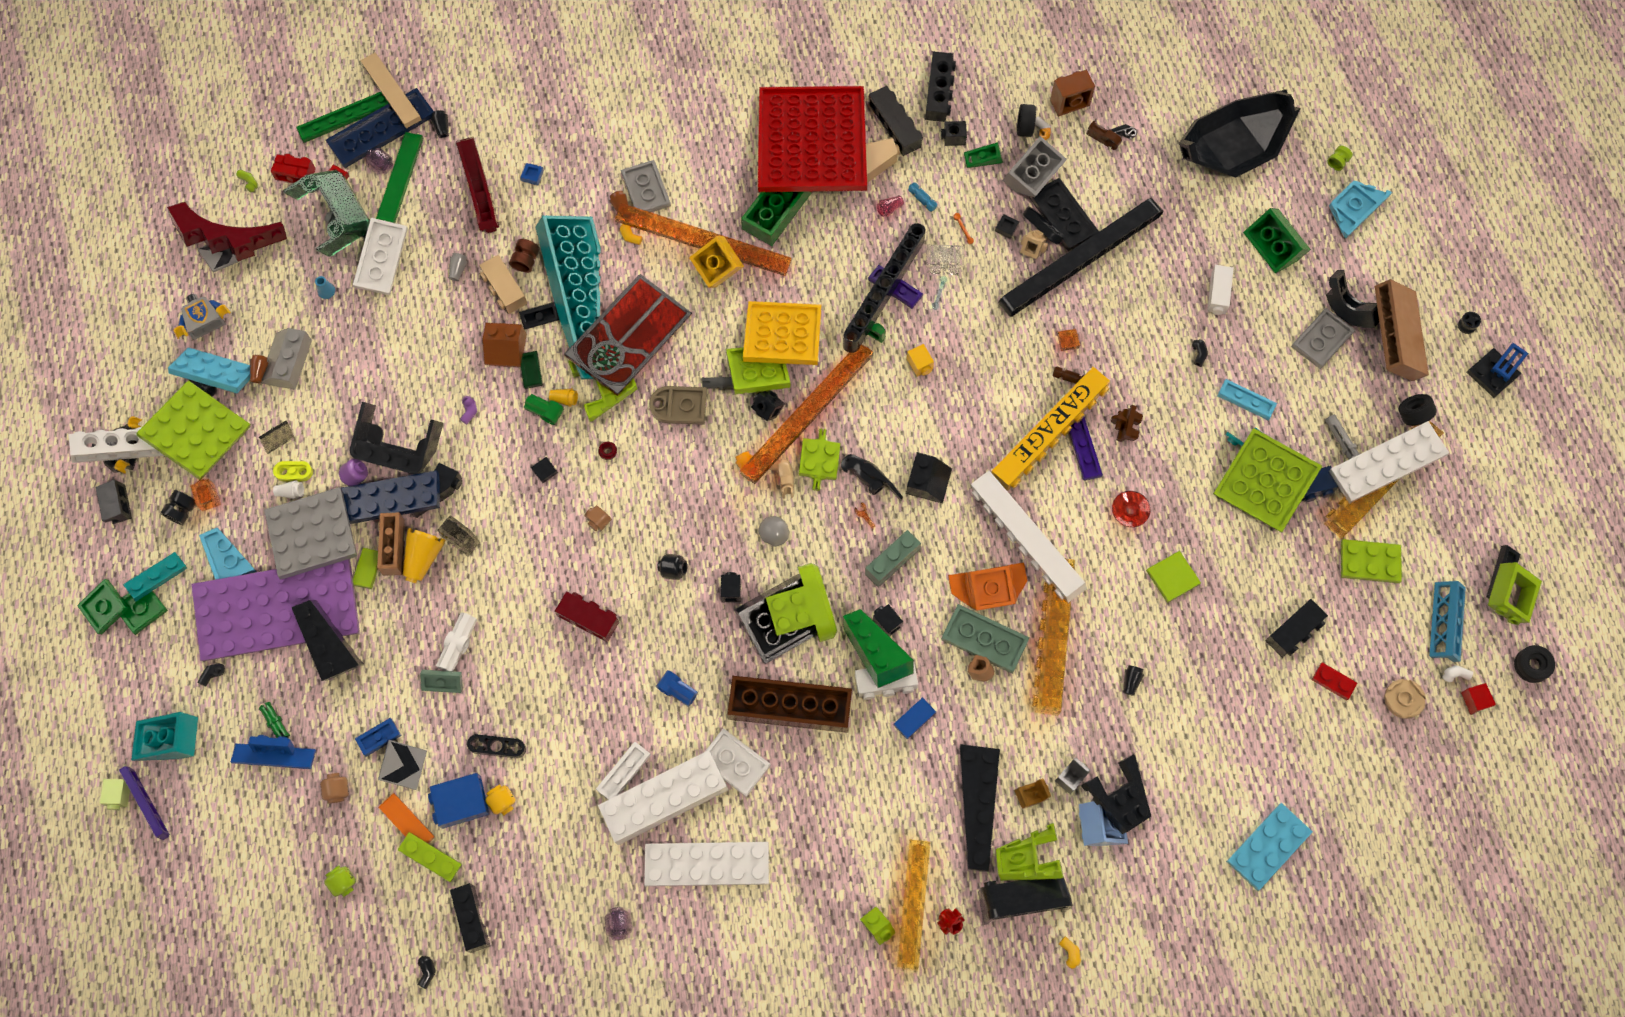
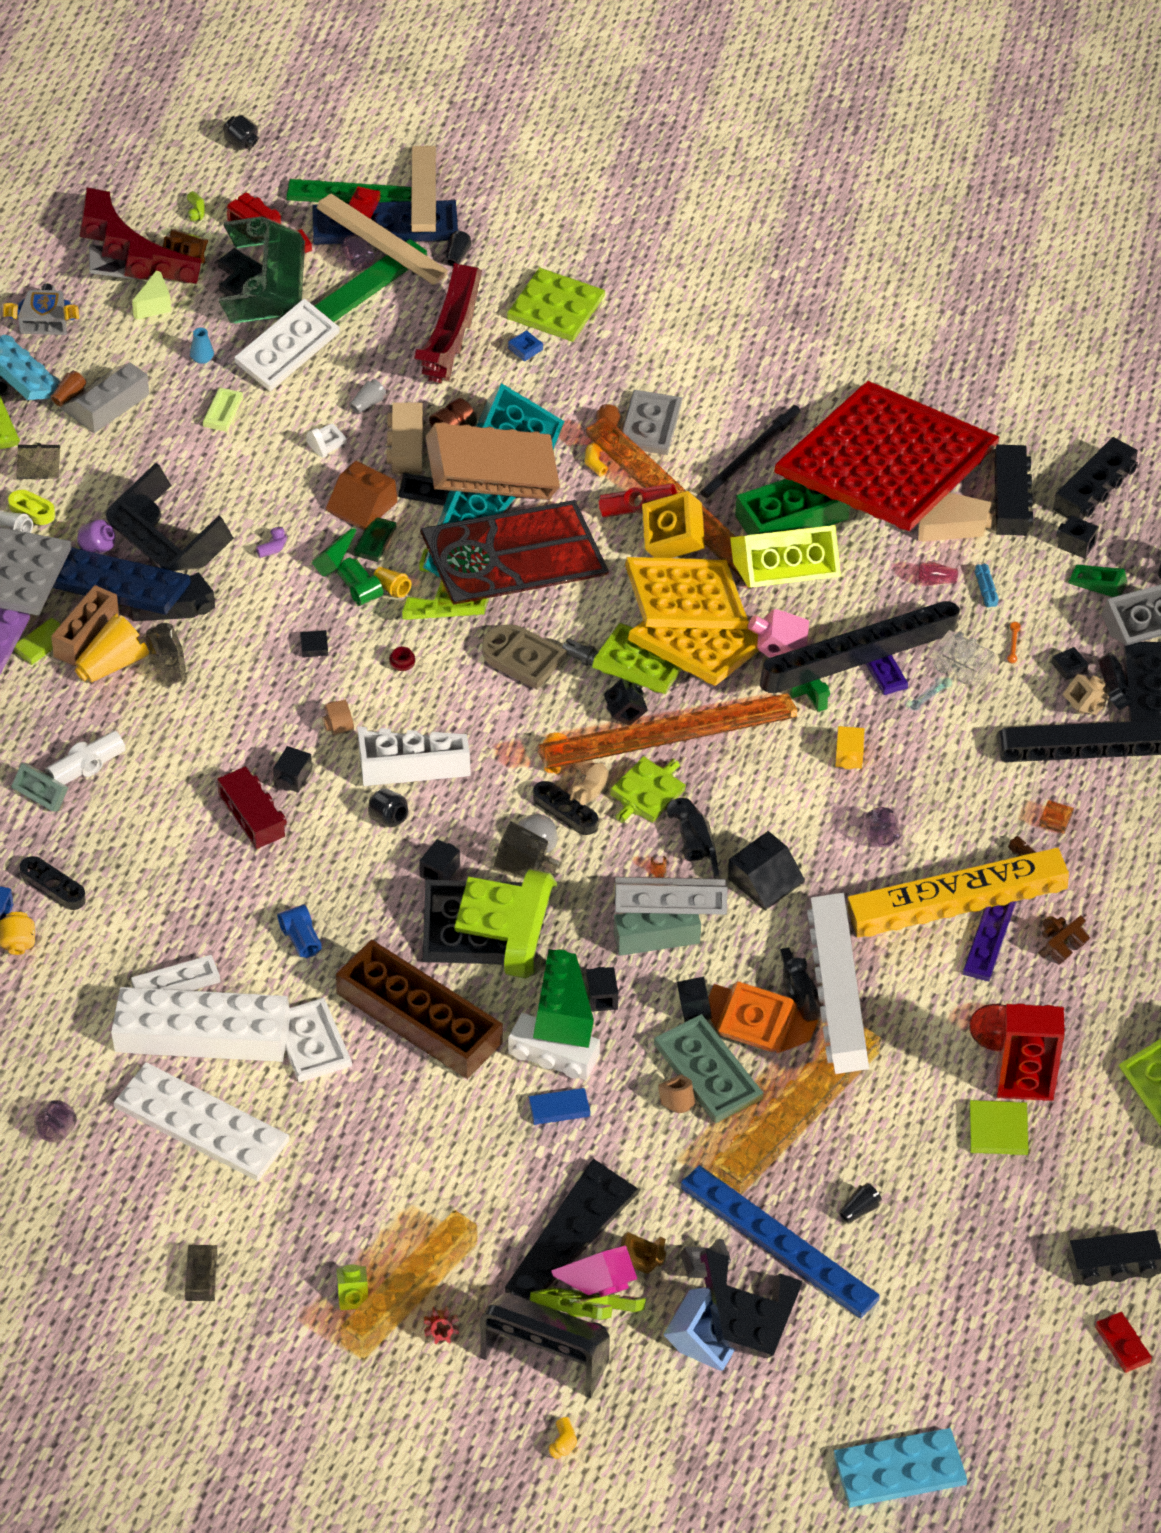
camera: 30 degrees right, 20 degrees down
(240, 108) = (241, 132): none -> black head
(262, 215) = (186, 244): none -> reddish brown hips
(267, 267) = (152, 298): none -> yellowish green slope
(315, 216) = (240, 269): none -> black plate
(360, 126) = (365, 201): none -> red plate
(368, 326) = (222, 409): none -> yellowish green tile
(390, 144) = (382, 239): none -> tan tile
(451, 313) = (325, 439): none -> white tile
(513, 396) = (332, 556): none -> green slope
(530, 132) = (556, 304): none -> lime plate
(574, 277) = (492, 461): none -> medium nougat brick
(594, 573) = (292, 769): none -> black brick
(662, 522) = (411, 756): none -> white wedge
(671, 259) = (624, 502): none -> red piece
(725, 147) = (780, 423): none -> black bar
(755, 306) = (686, 593): none -> yellow plate
(774, 494) = (560, 798): none -> black beam
(779, 553) = (523, 851): none -> clear smoke torso
(781, 975) = (201, 1273): none -> clear smoke plate
(796, 244) = (786, 556): none -> neon yellow slope
(832, 305) = (779, 632): none -> bright pink torso
(894, 541) = (670, 895): none -> light grey fence
(947, 596) = (694, 998): none -> black brick
(976, 406) = (882, 826): none -> head
(1000, 548) = (799, 985): none -> black animal
(1021, 829) = (602, 1273): none -> dark pink slope
(1102, 733) = (780, 1241): none -> blue plate
(1175, 523) = (1030, 1052): none -> red brick

